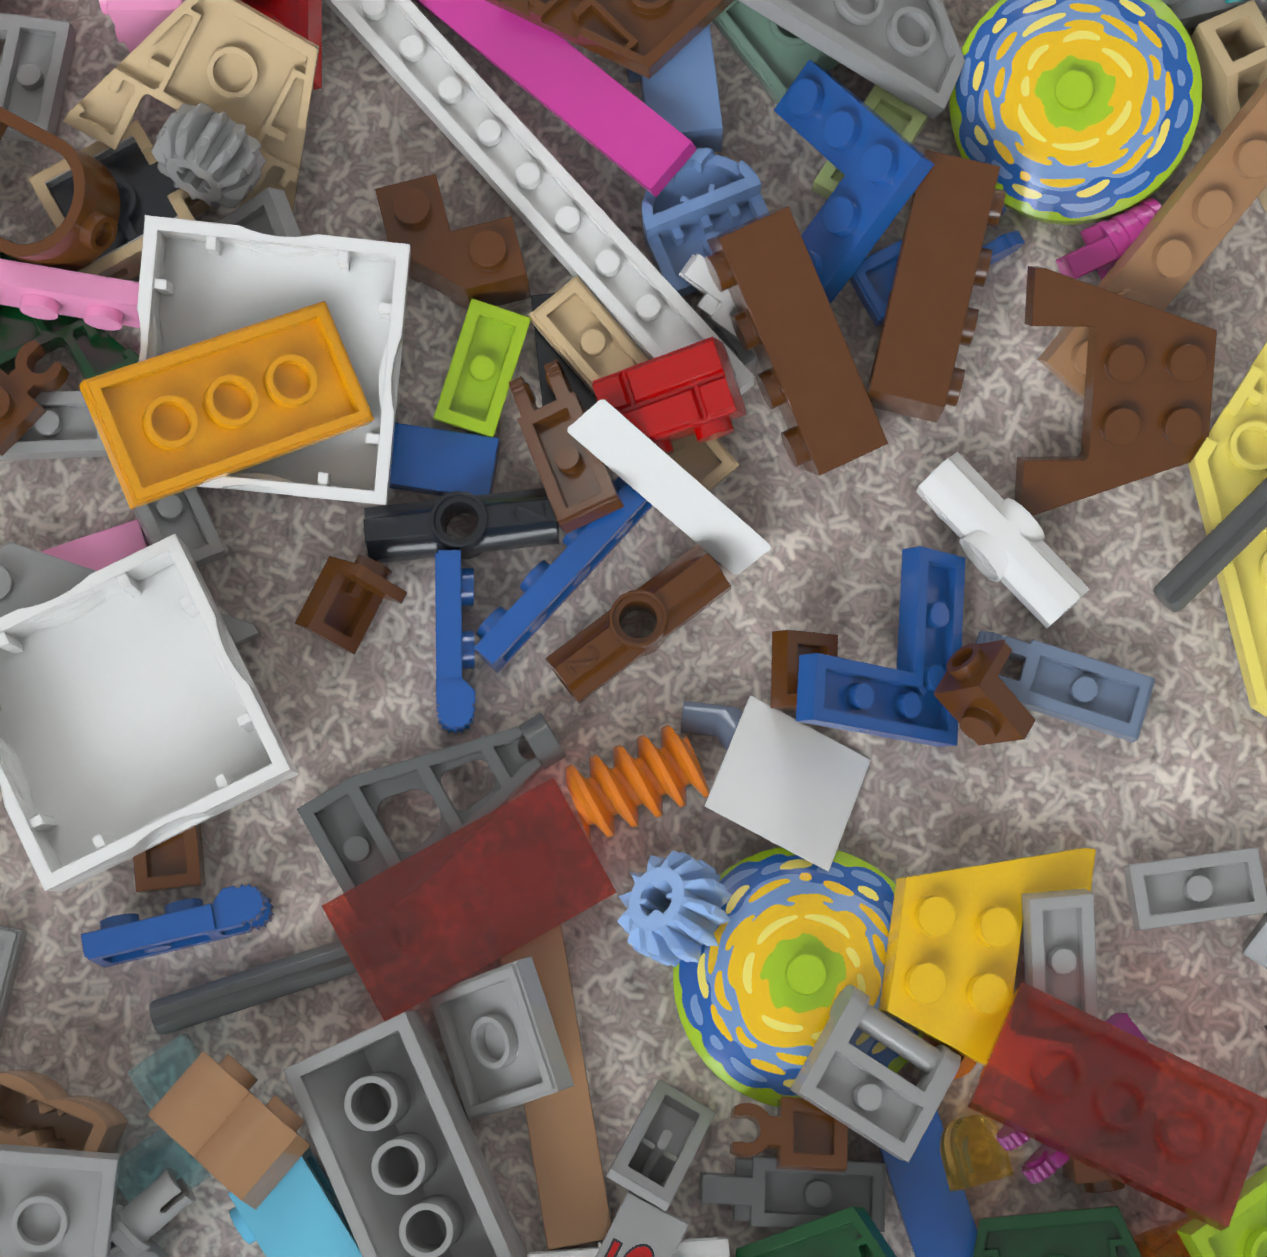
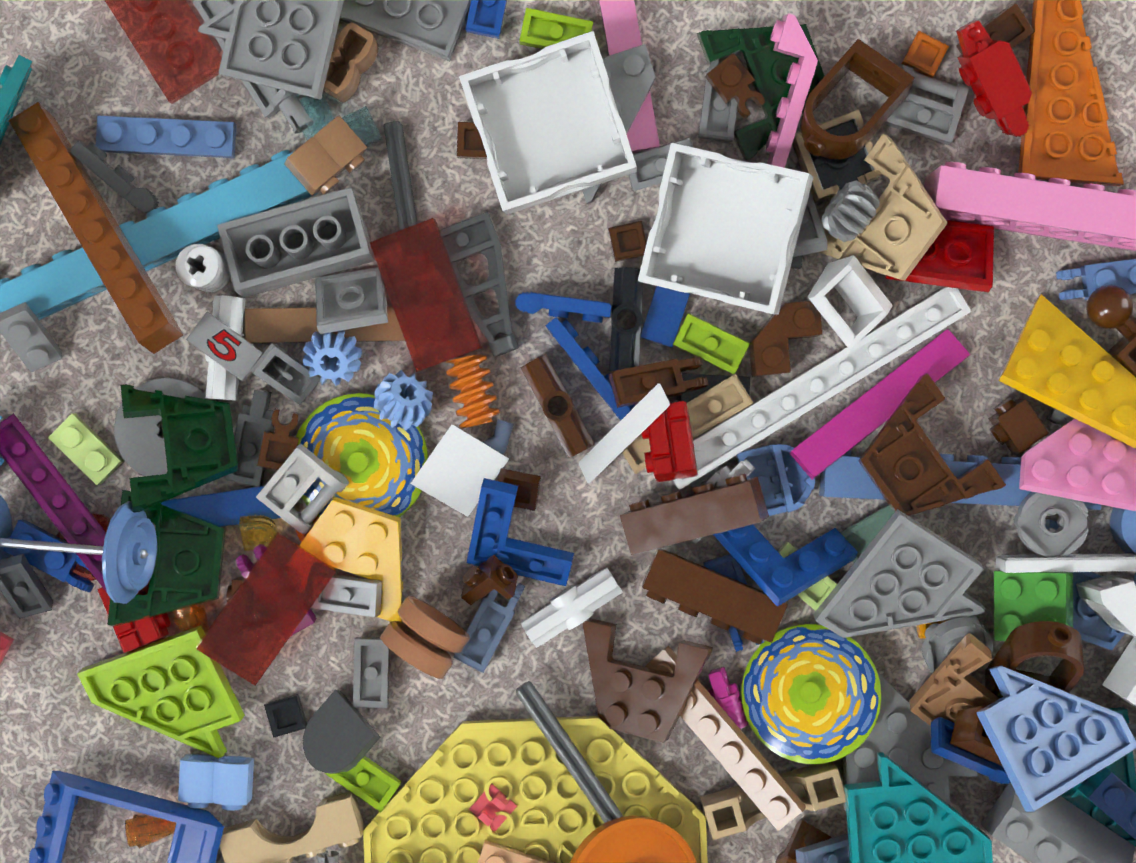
camera: 90 degrees right, 10 degrees up
(182, 926) = (437, 143): blue hinge -> none
(226, 404) = (702, 203): light orange tile -> none
(312, 542) = (628, 241): none -> reddish brown tile
(347, 600) = (594, 252): reddish brown bracket -> none
(357, 126) = (858, 292): none -> white tile
(632, 1058) = (332, 356): none -> light blue gear
(1113, 792) = (424, 637): none -> nougat wheel

